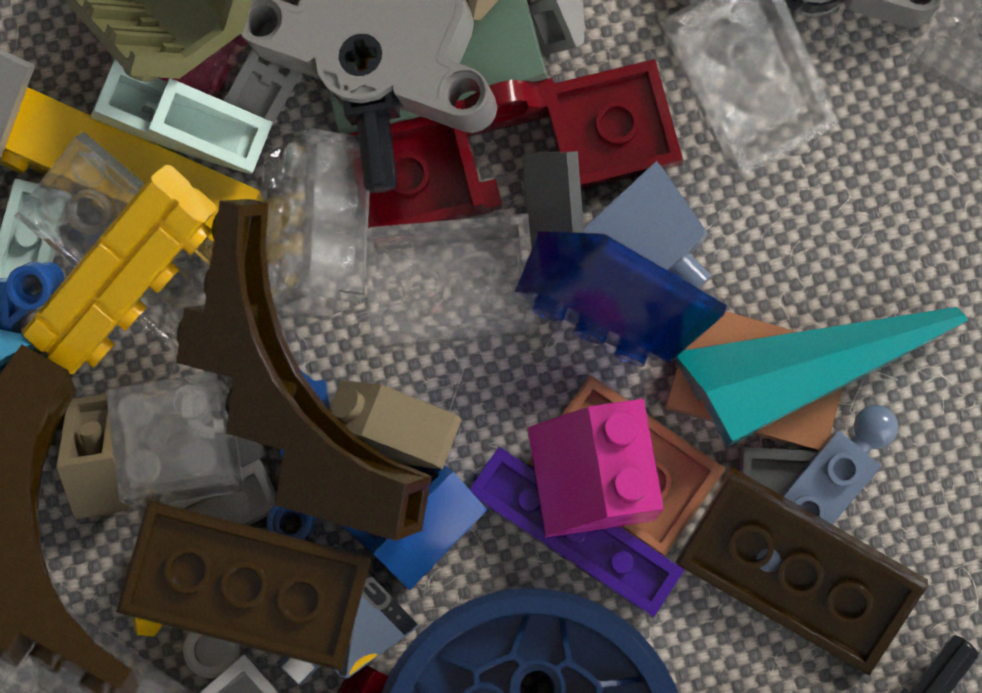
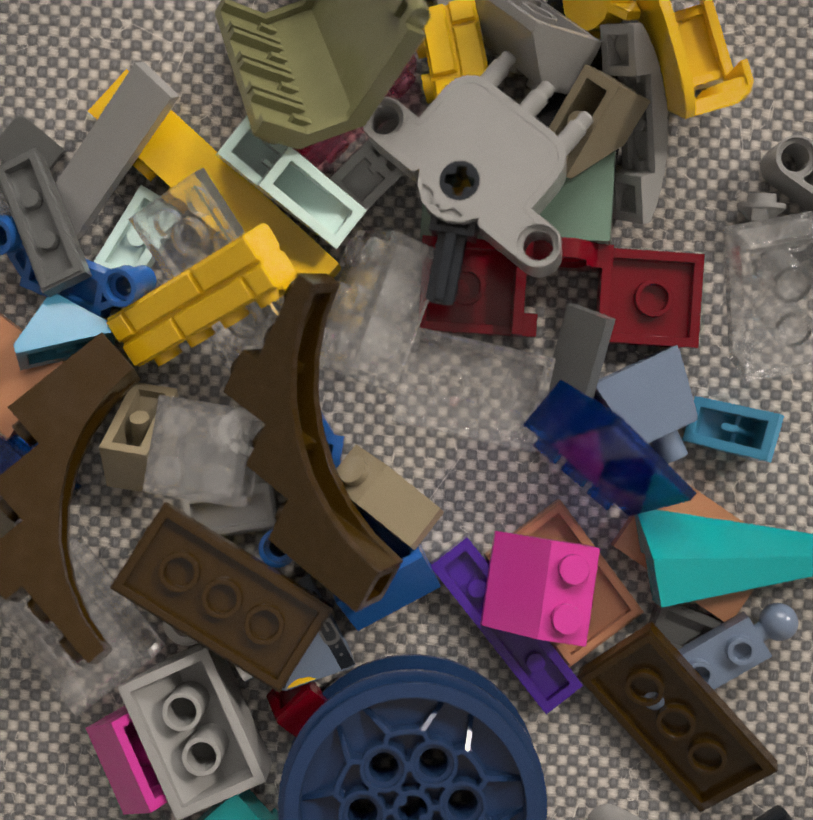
camera: 25 degrees right, 10 degrees up
(751, 235) = (734, 429): none -> dark azure slope

